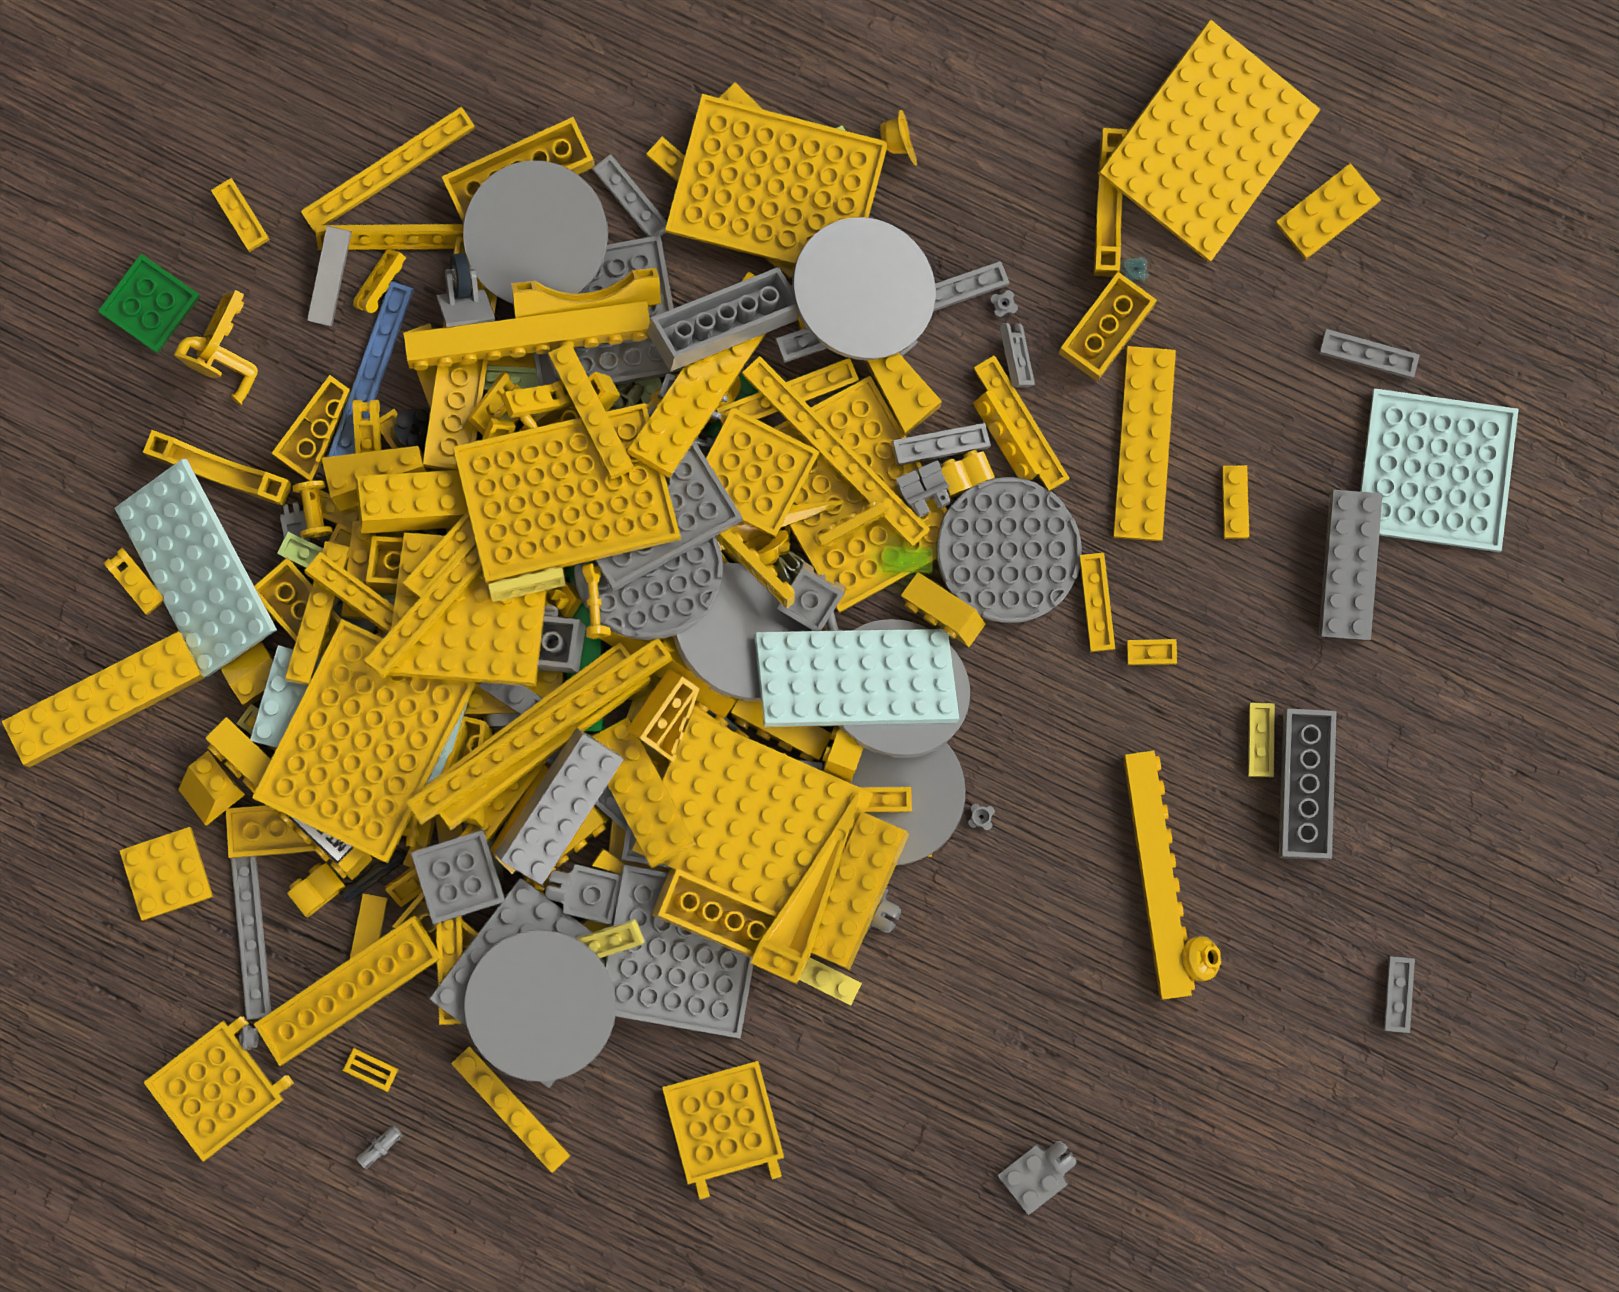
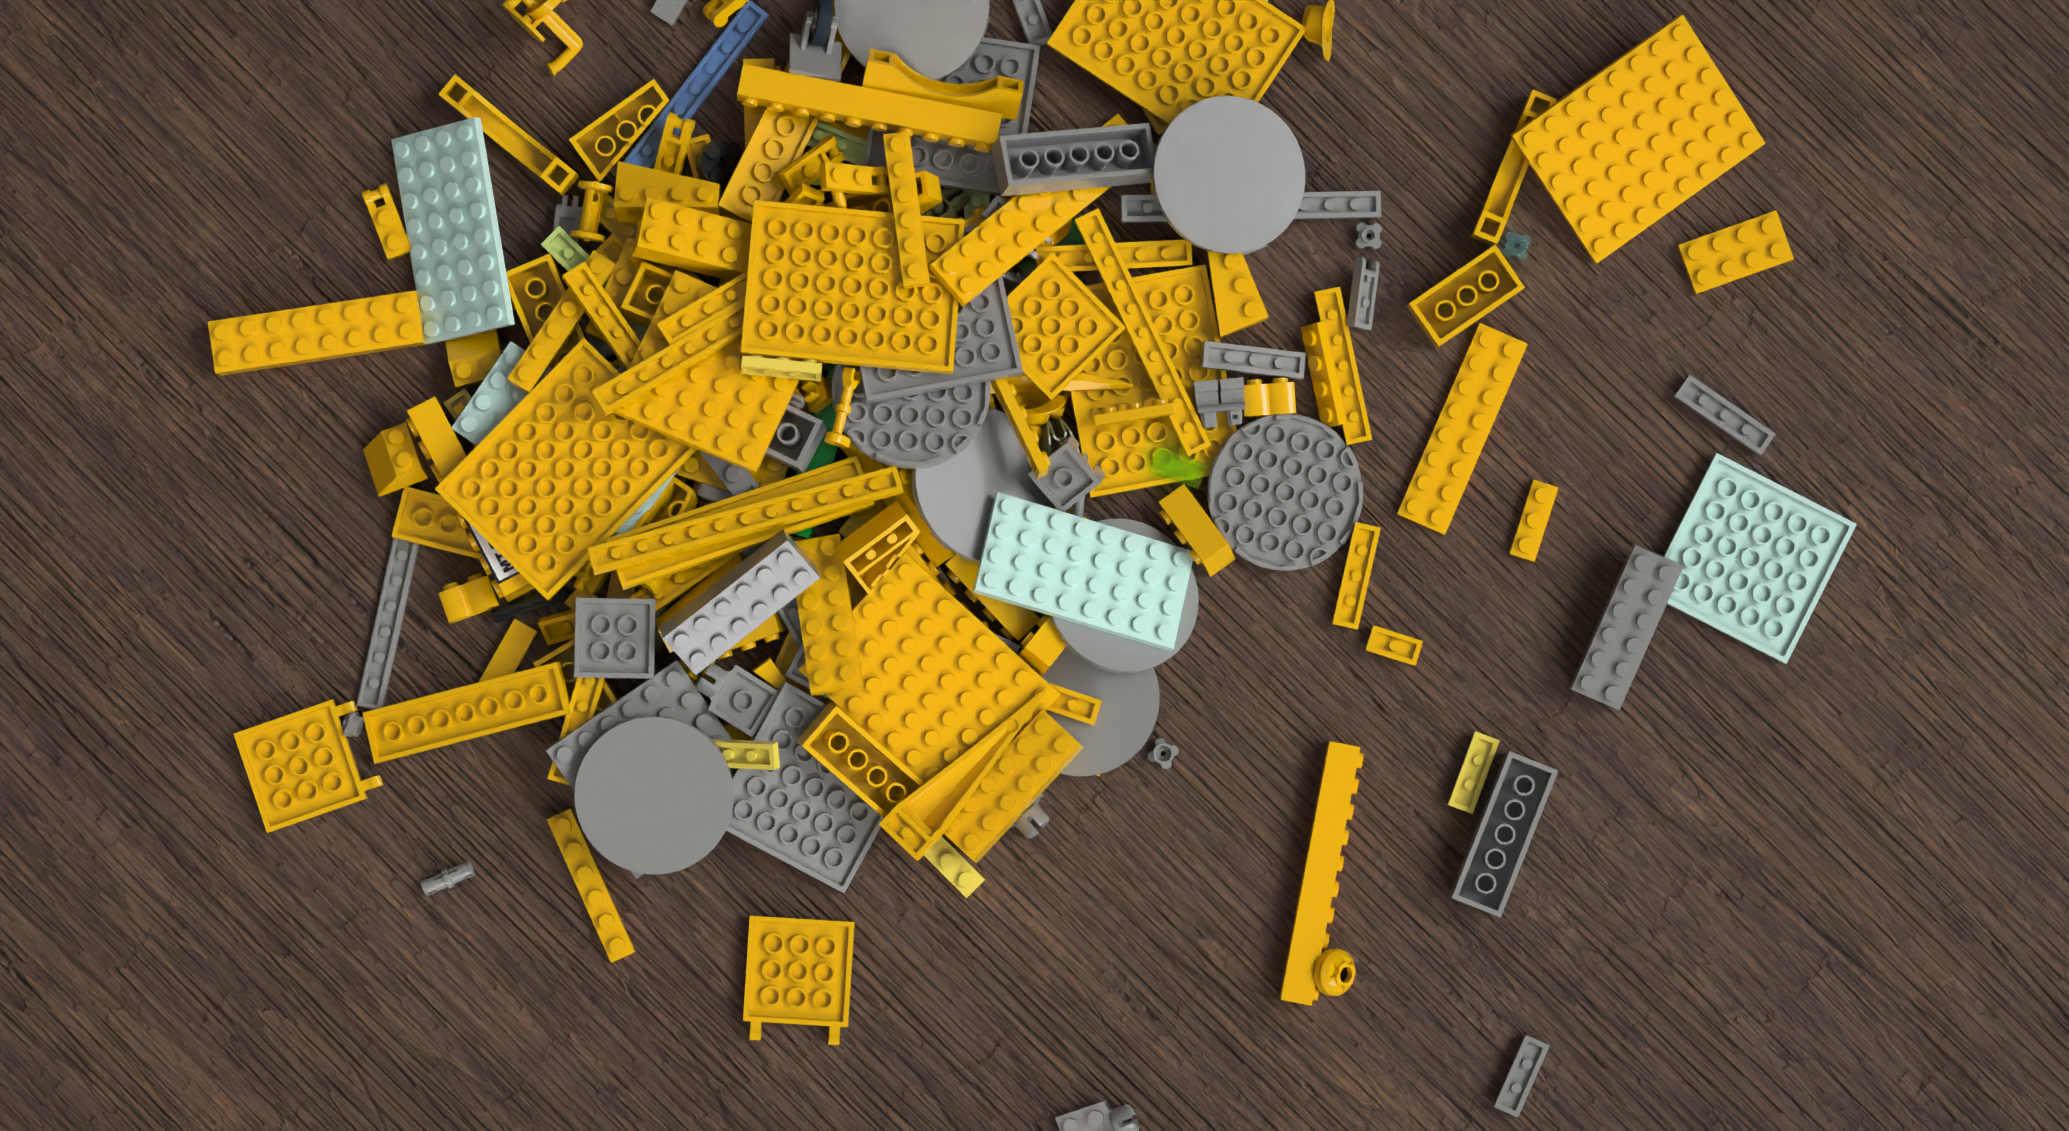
camera: 15 degrees right, 5 degrees up
(166, 873) = (323, 531): yellow plate -> none
(390, 1078) = (480, 813): yellow tile -> none

